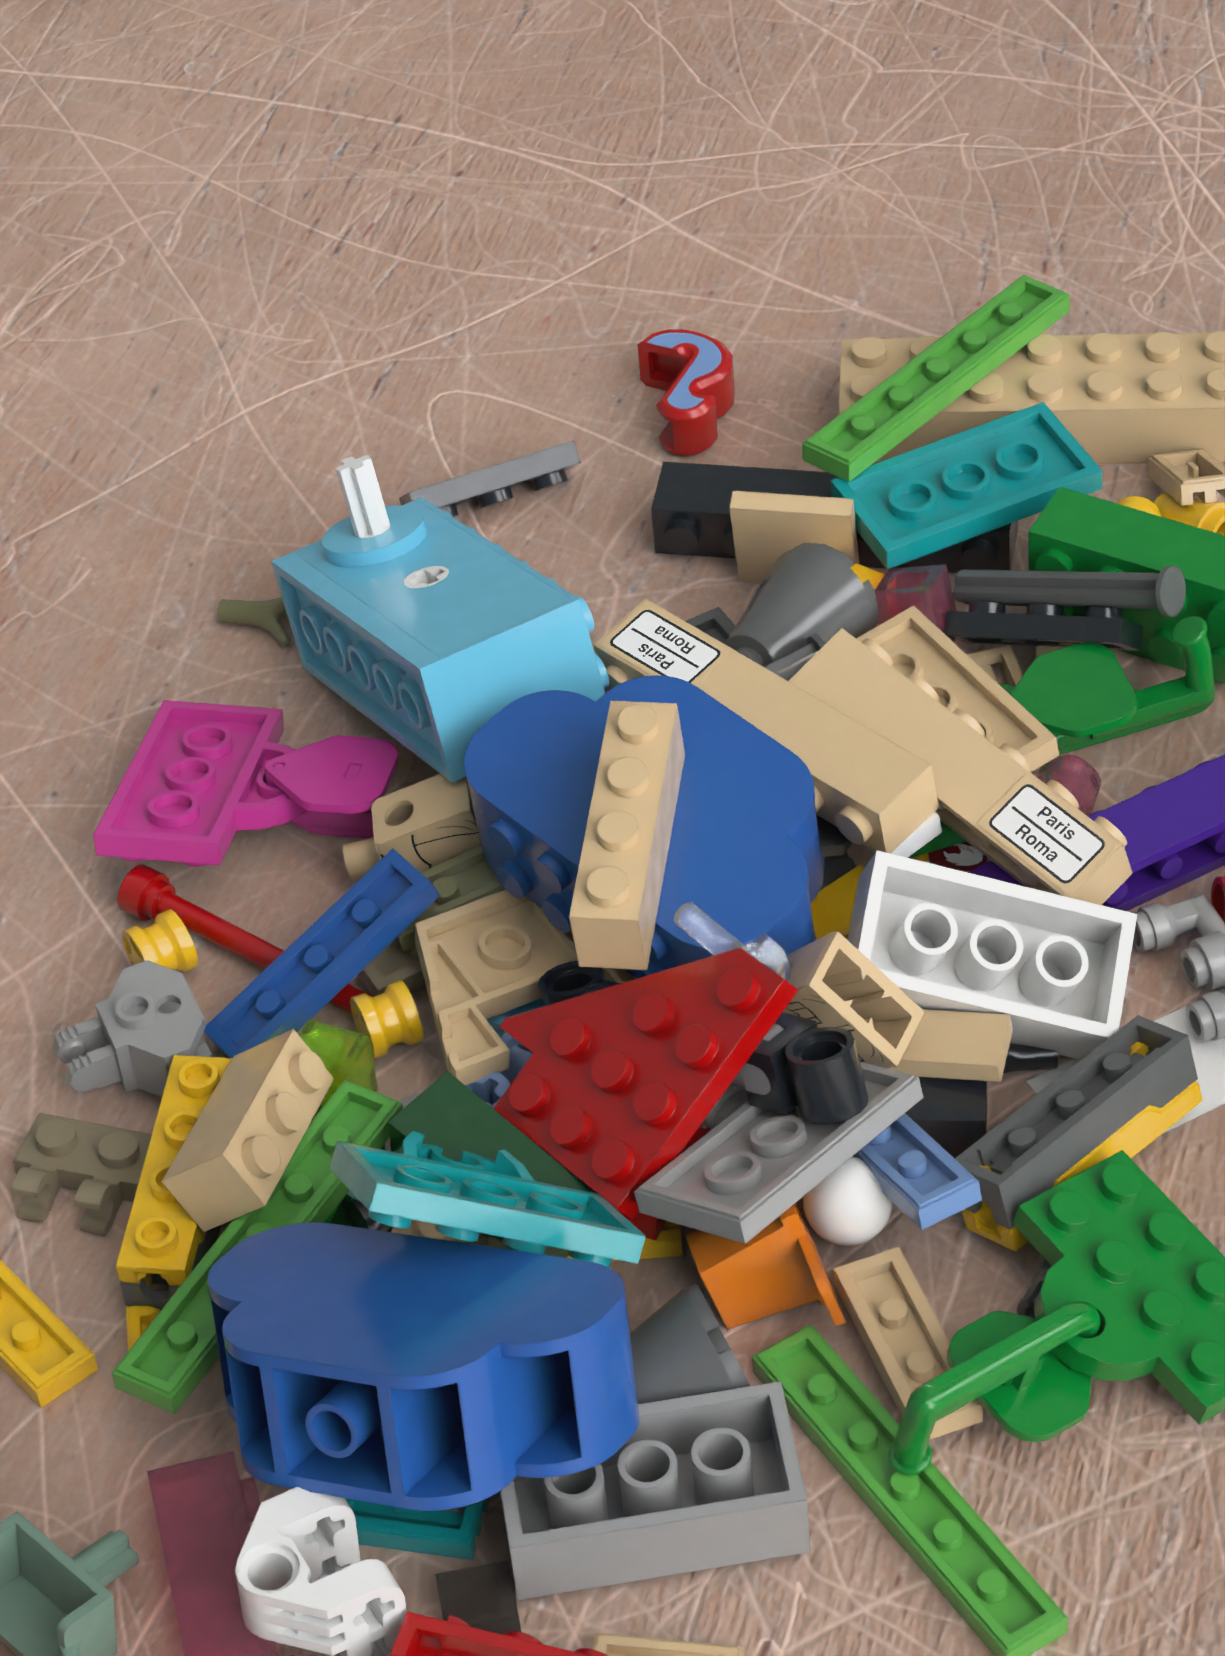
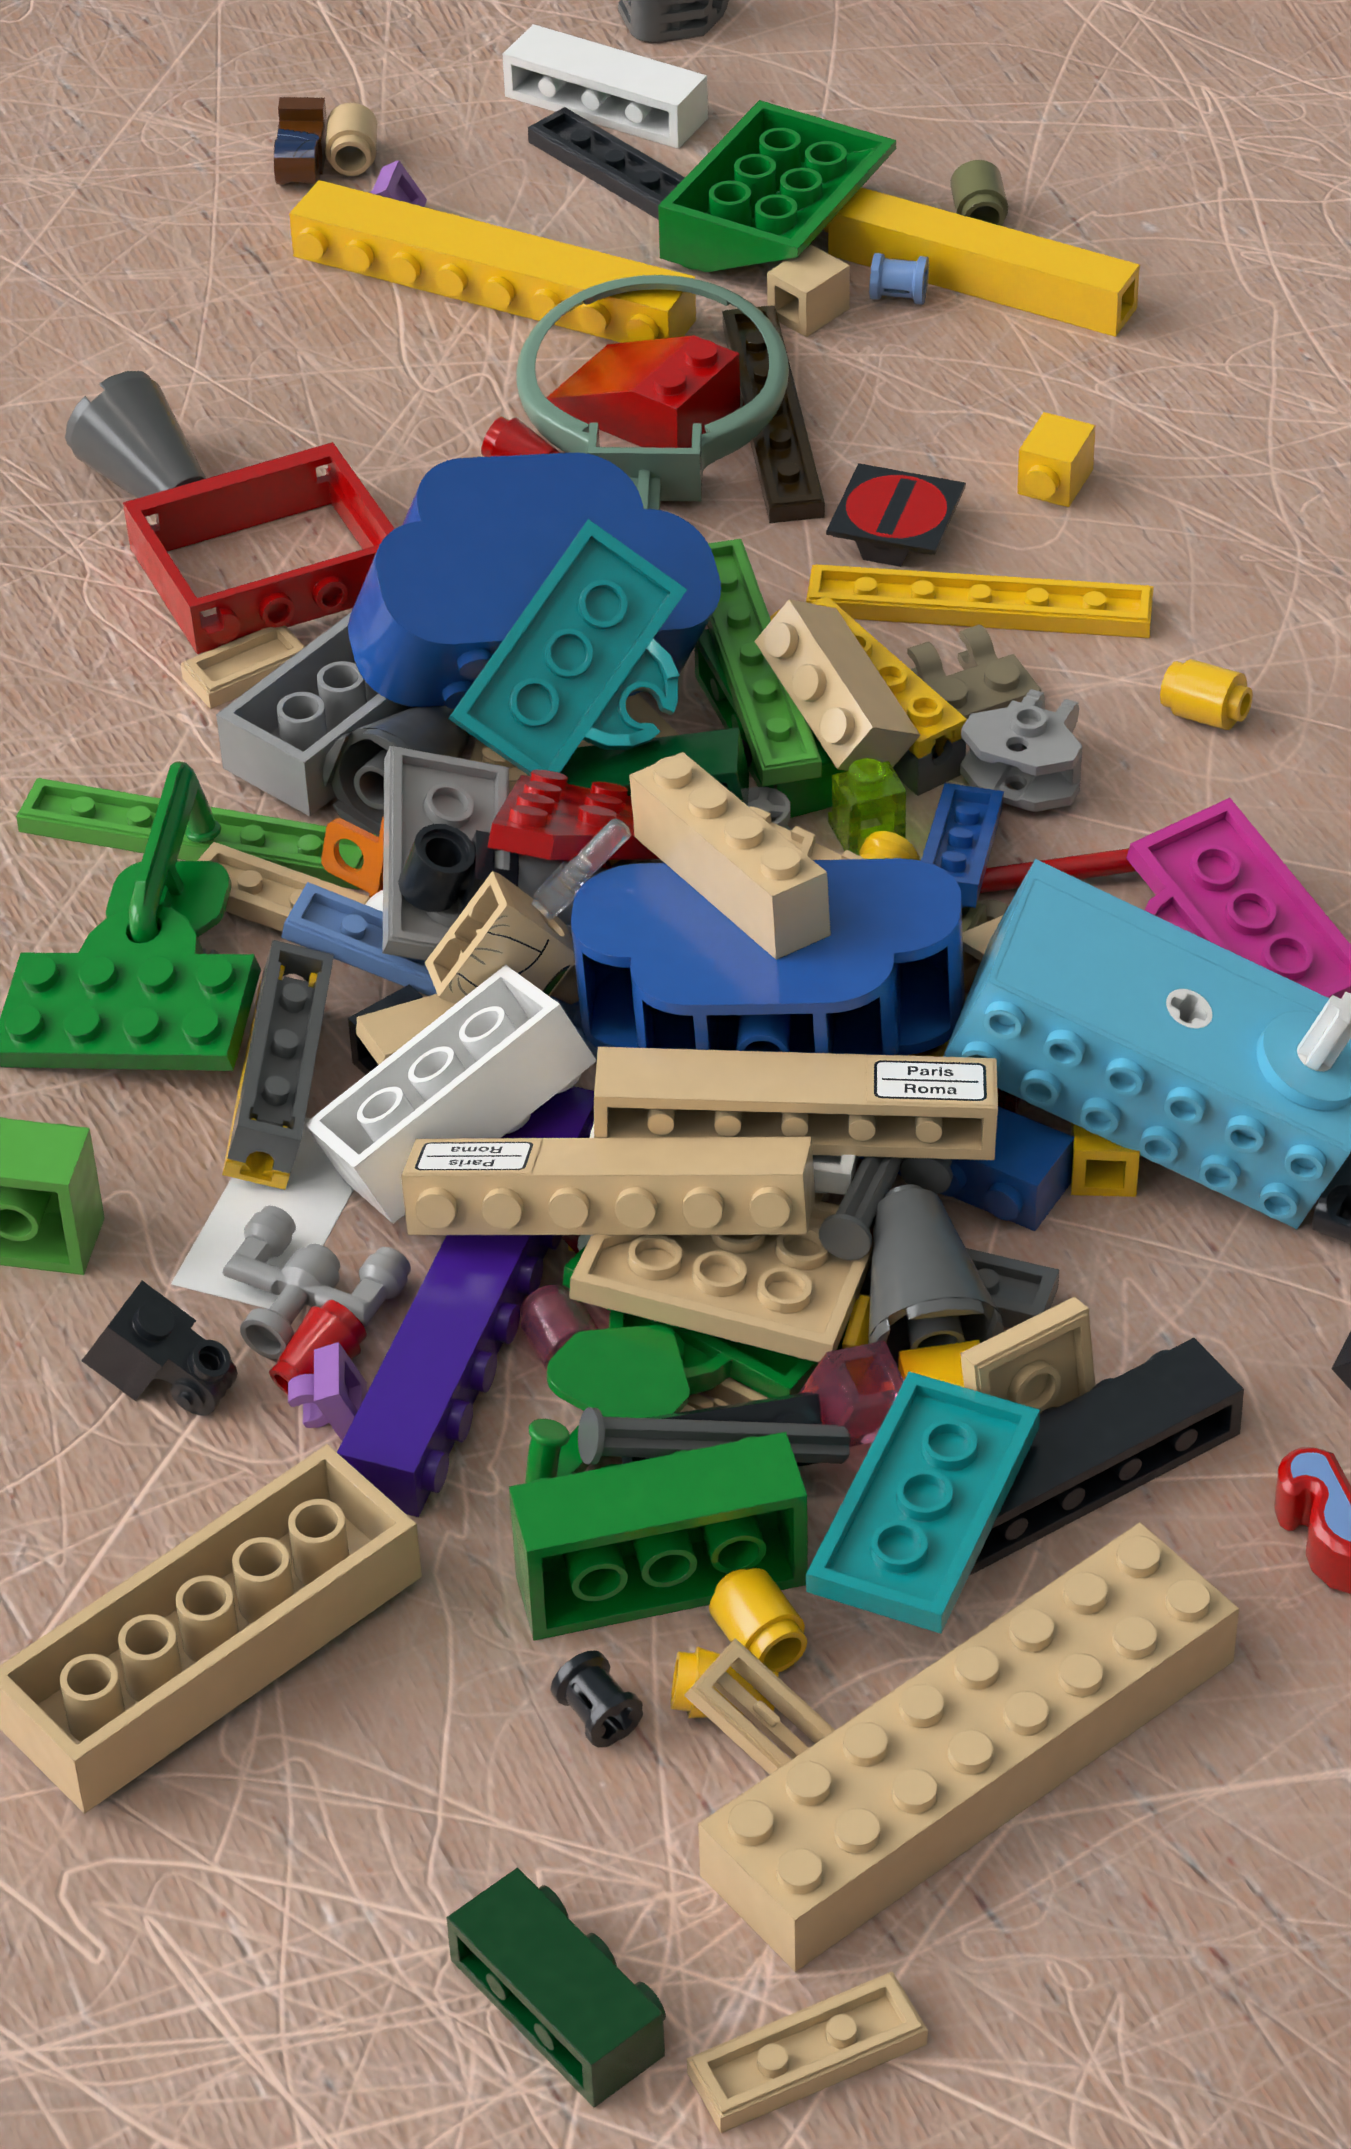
camera: 135 degrees right, 0 degrees up
(162, 943) = (1109, 816): yellow wheel -> none
(935, 378) = (1071, 1586): bright green tile -> none

